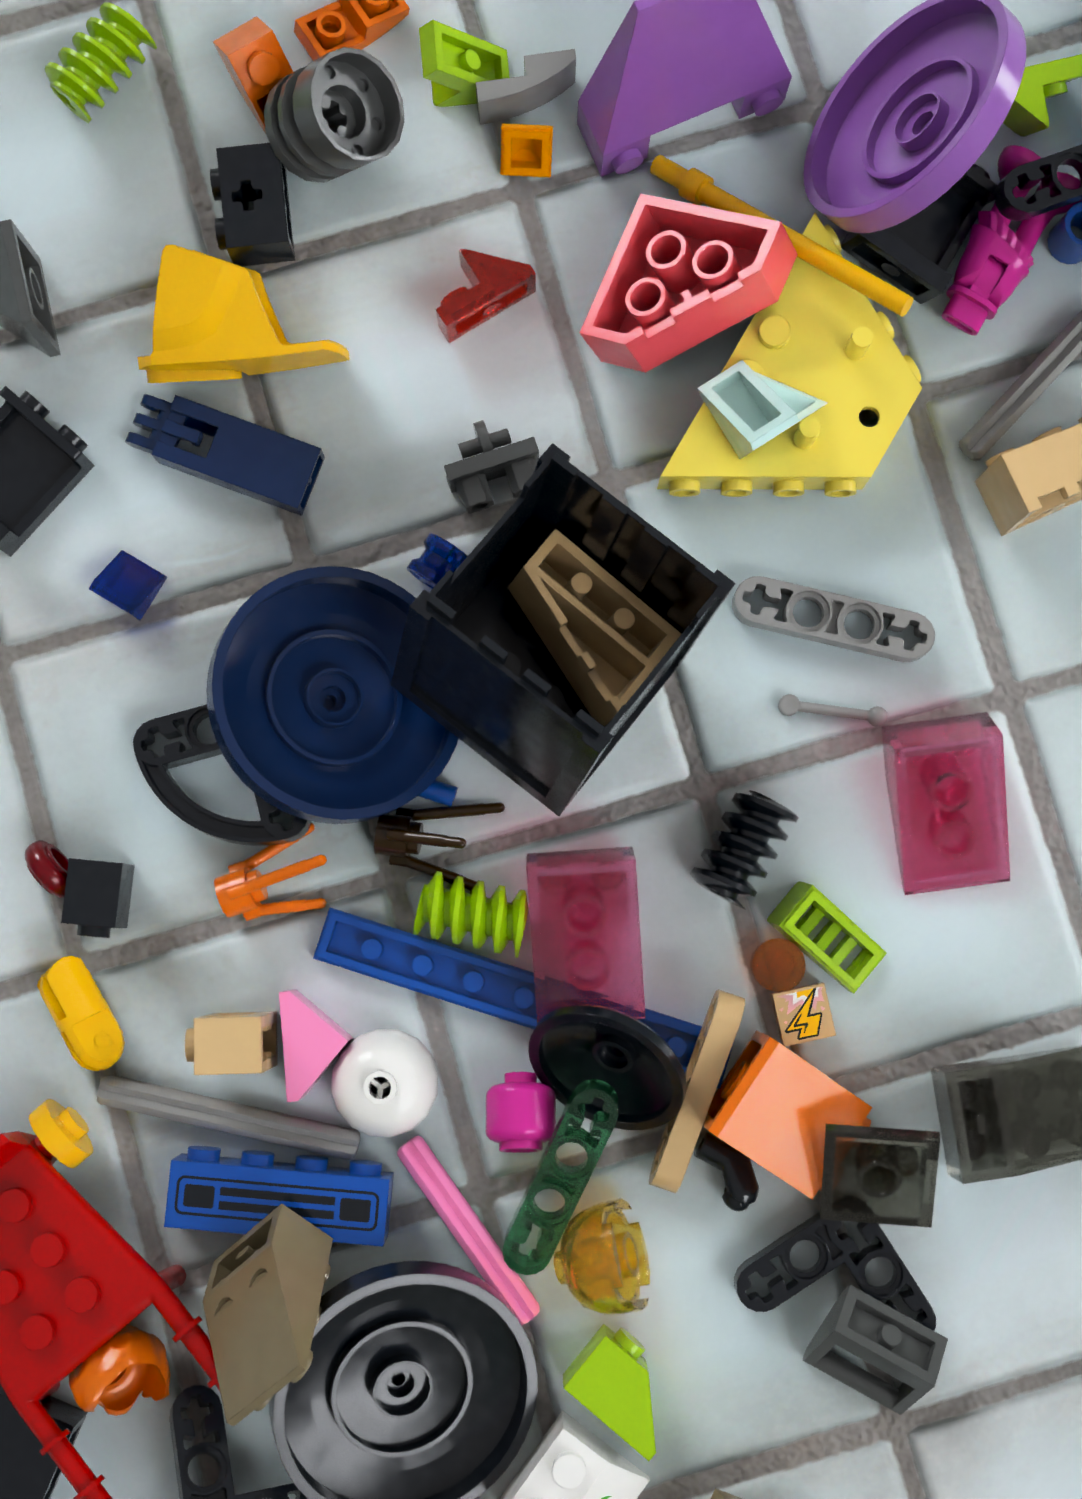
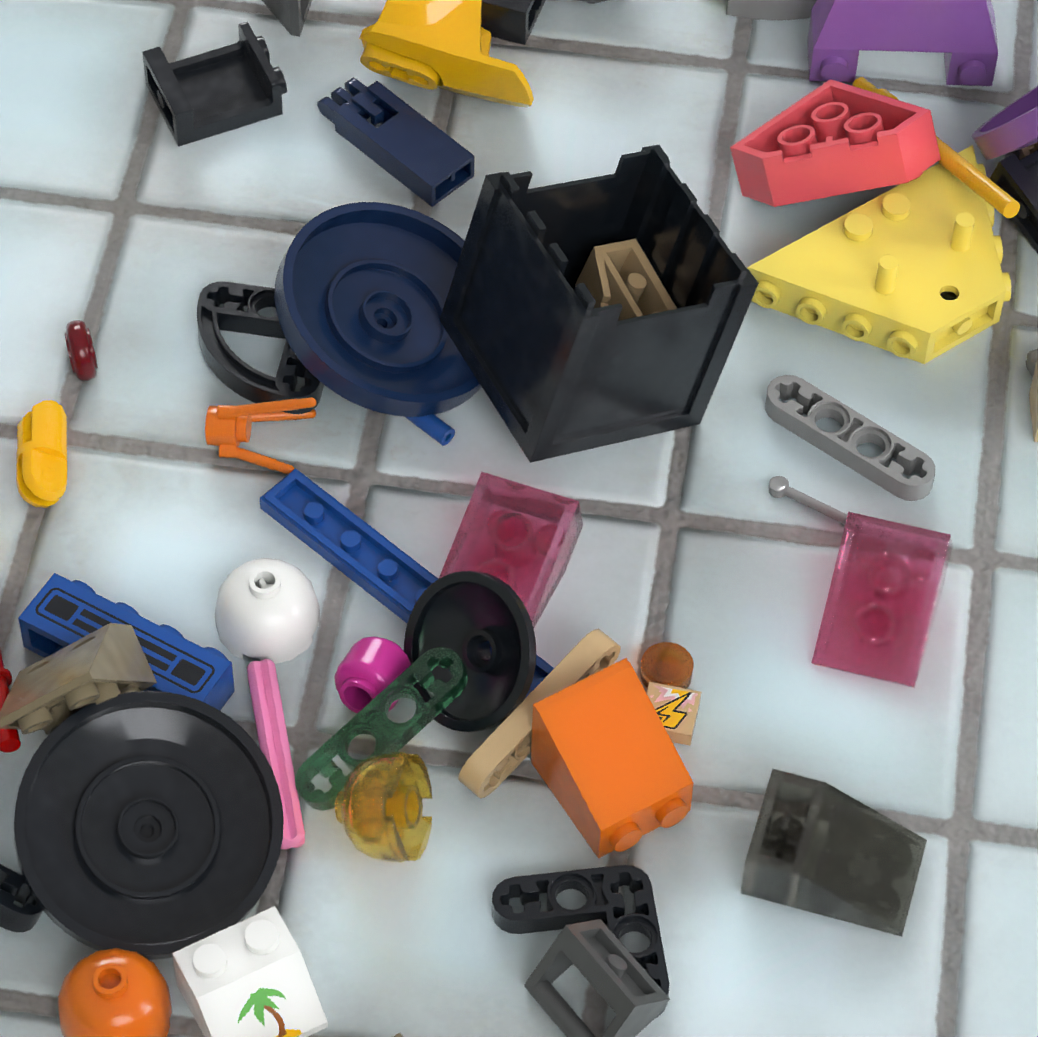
camera: 25 degrees right, 30 degrees down
(97, 896) = (108, 380): black brick -> none
(128, 584) = (260, 194): clear blue slope -> none
(228, 1117) = (111, 578): light grey axle -> none
(233, 1043) = (160, 511): tan brick -> none
(309, 1043) = (215, 552): bright pink slope -> none
(400, 836) = (389, 441): dark brown plant -> none
(472, 913) = (411, 513): lime piece -> none
(496, 287) = (674, 111): clear red slope -> none
(526, 150) = (754, 35): light orange slope -> none
(615, 1386) = (339, 919): lime slope -> none
(736, 1169) = (543, 804): black arm -> none
(742, 846) = (678, 554): black piece -> none
(754, 407) = (849, 244): light aqua slope -> none
(794, 906) = (725, 626): lime slope -> none
(879, 1175) = (675, 824): clear smoke slope -> none

